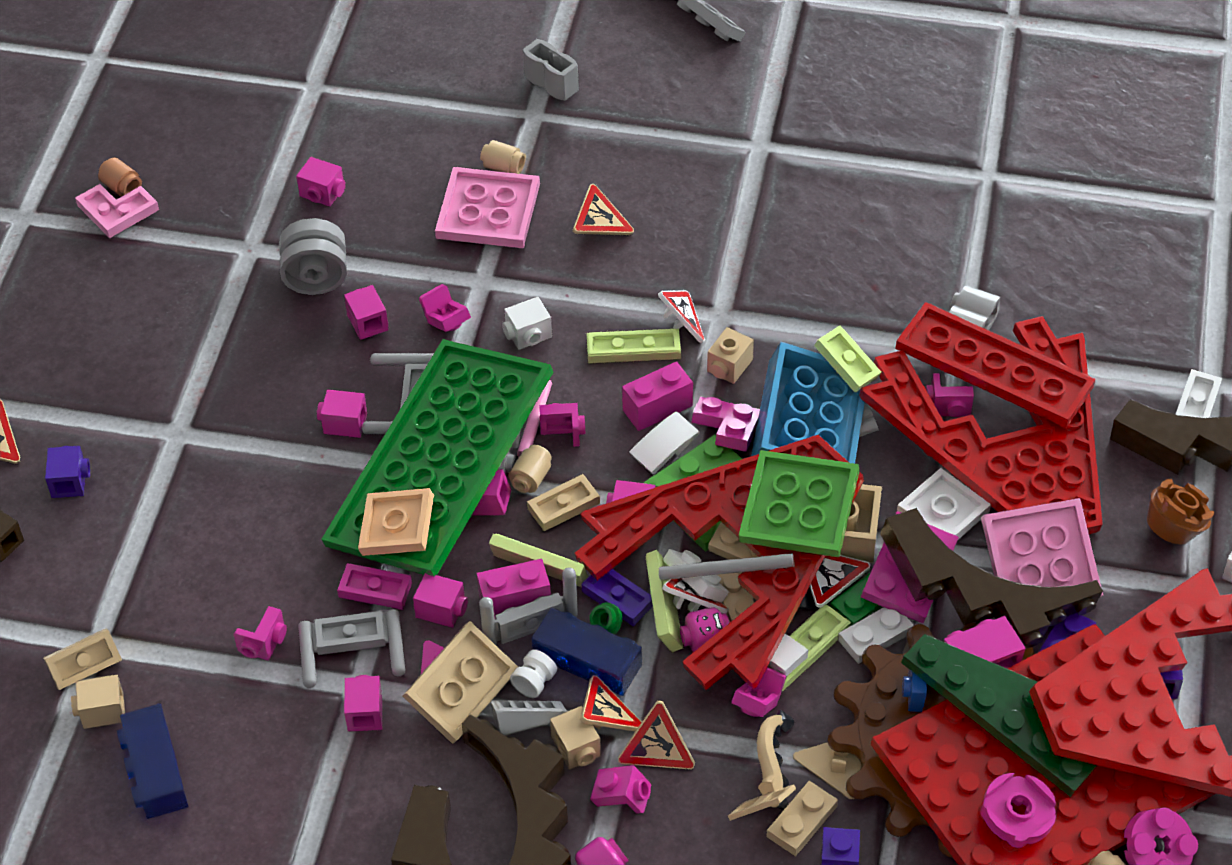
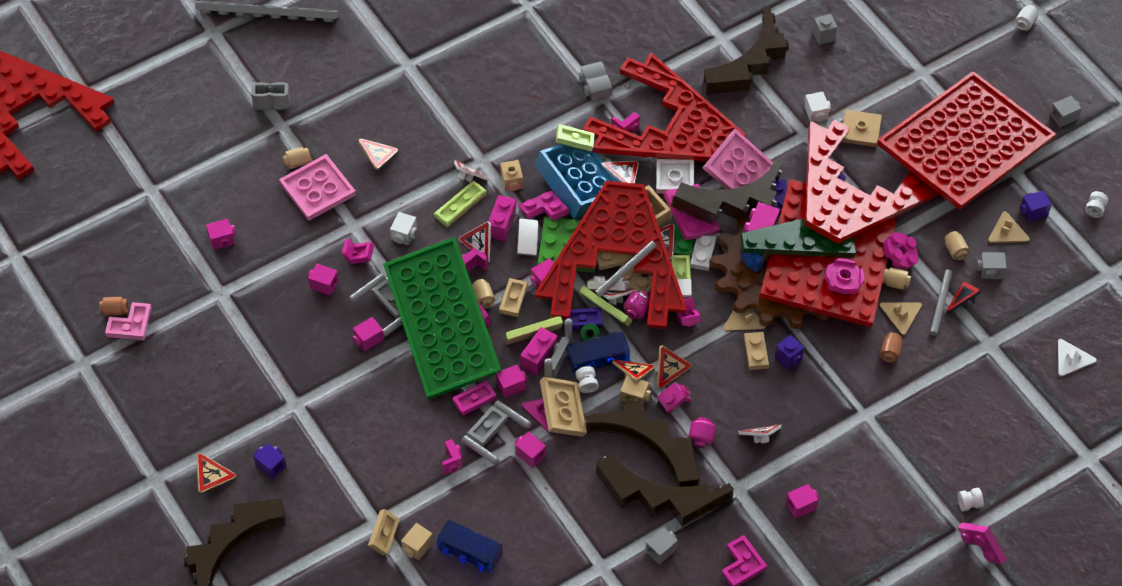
camera: 45 degrees left, 5 degrees up
(312, 256) = (269, 271): light grey wheel -> none
(396, 522) = (462, 360): light nougat plate -> none
(524, 715) = (603, 398): light grey slope -> none
(597, 400) = (478, 238): none -> piece
(774, 784) = (738, 351): tan piece -> none
(799, 503) = (632, 216): bright green plate -> none
(877, 452) = (623, 171): none -> piece
(995, 364) = (634, 94): red plate -> none
(1178, 512) = (772, 106): dark orange cone -> none
(1199, 395) = (725, 48): white plate -> none

